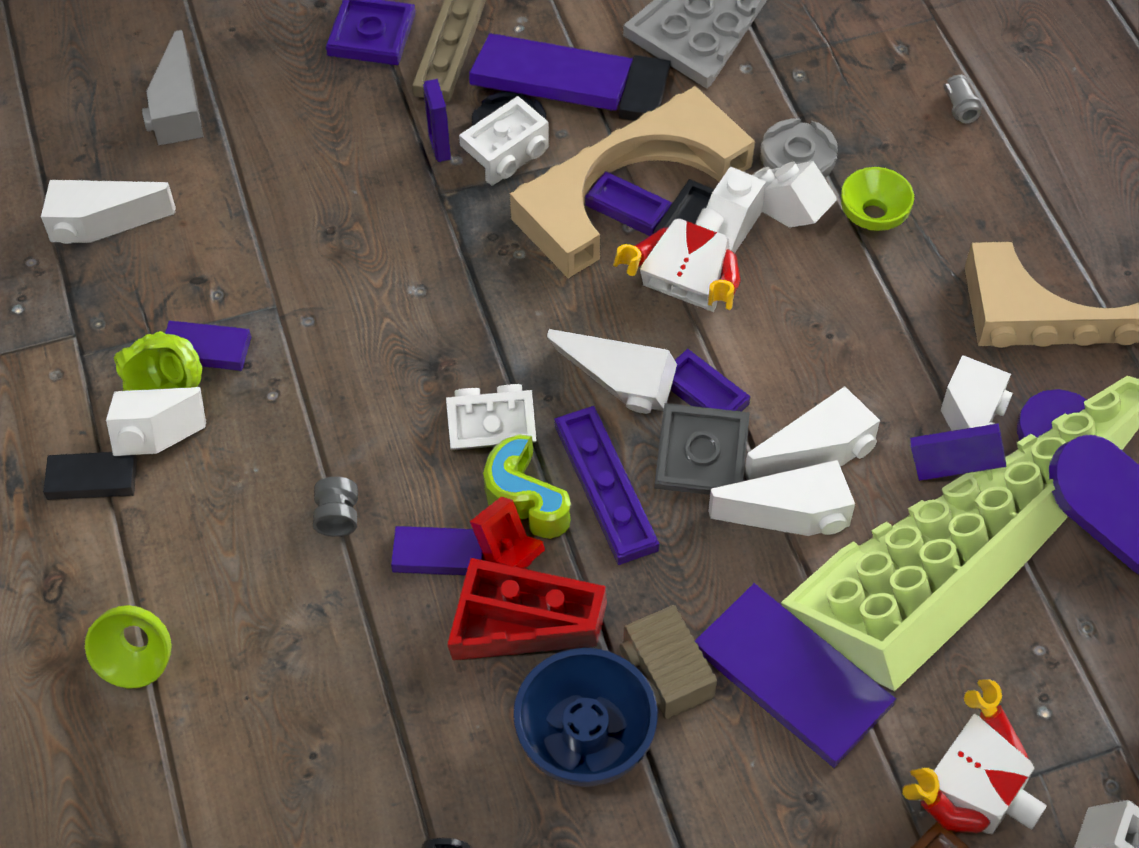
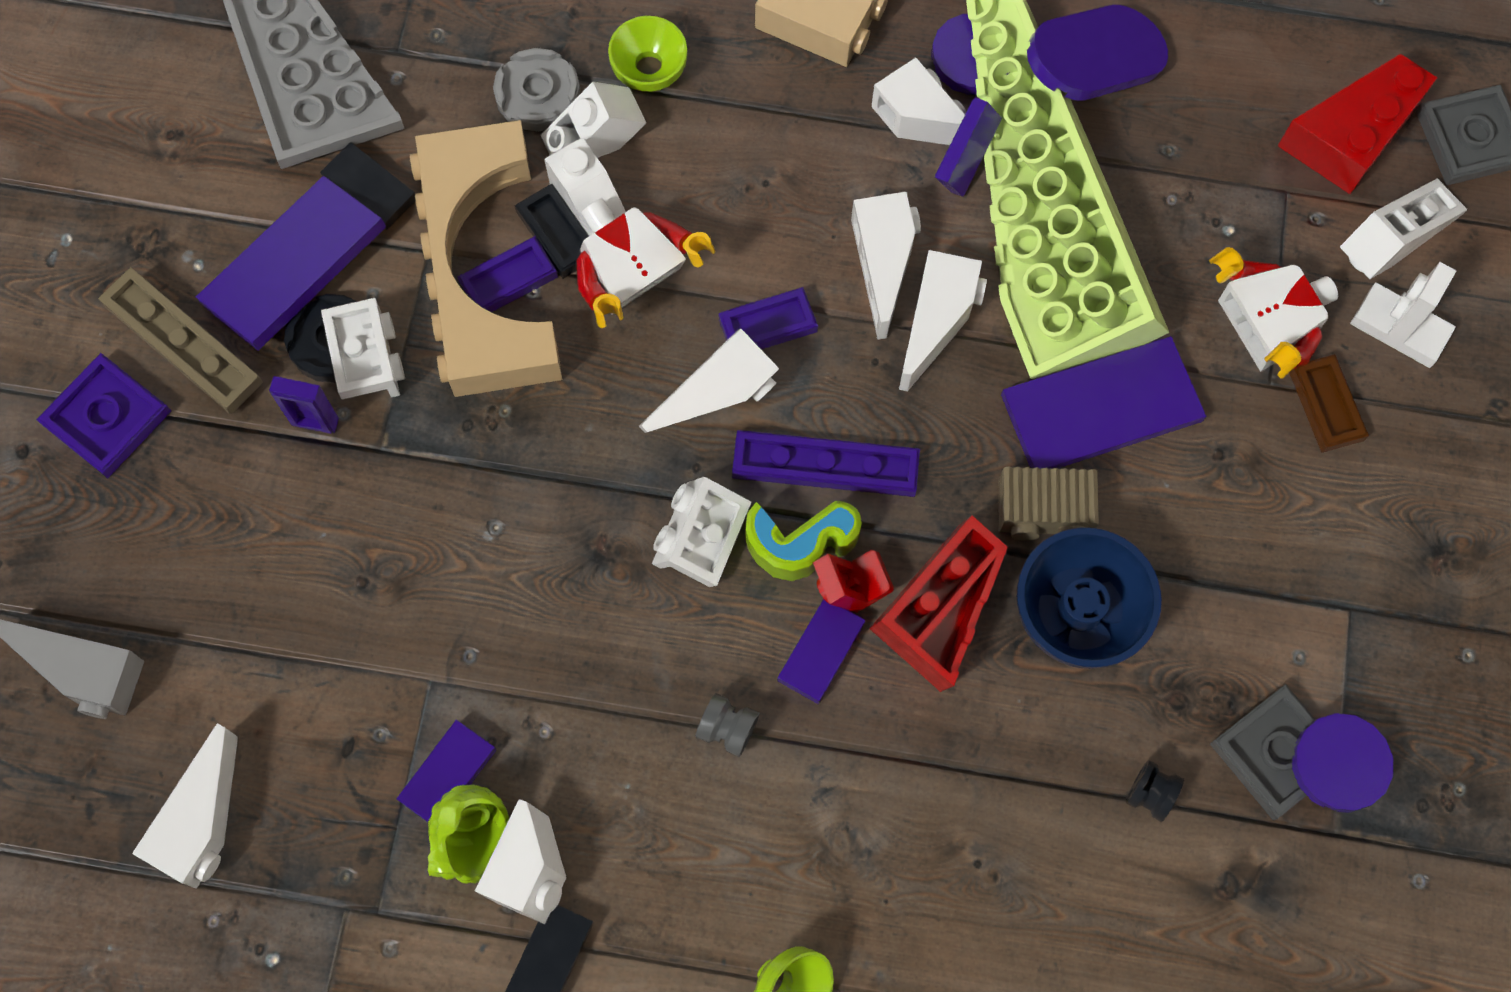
camera: 65 degrees left, 15 degrees up
(700, 448) = (840, 360): dark grey tile -> none

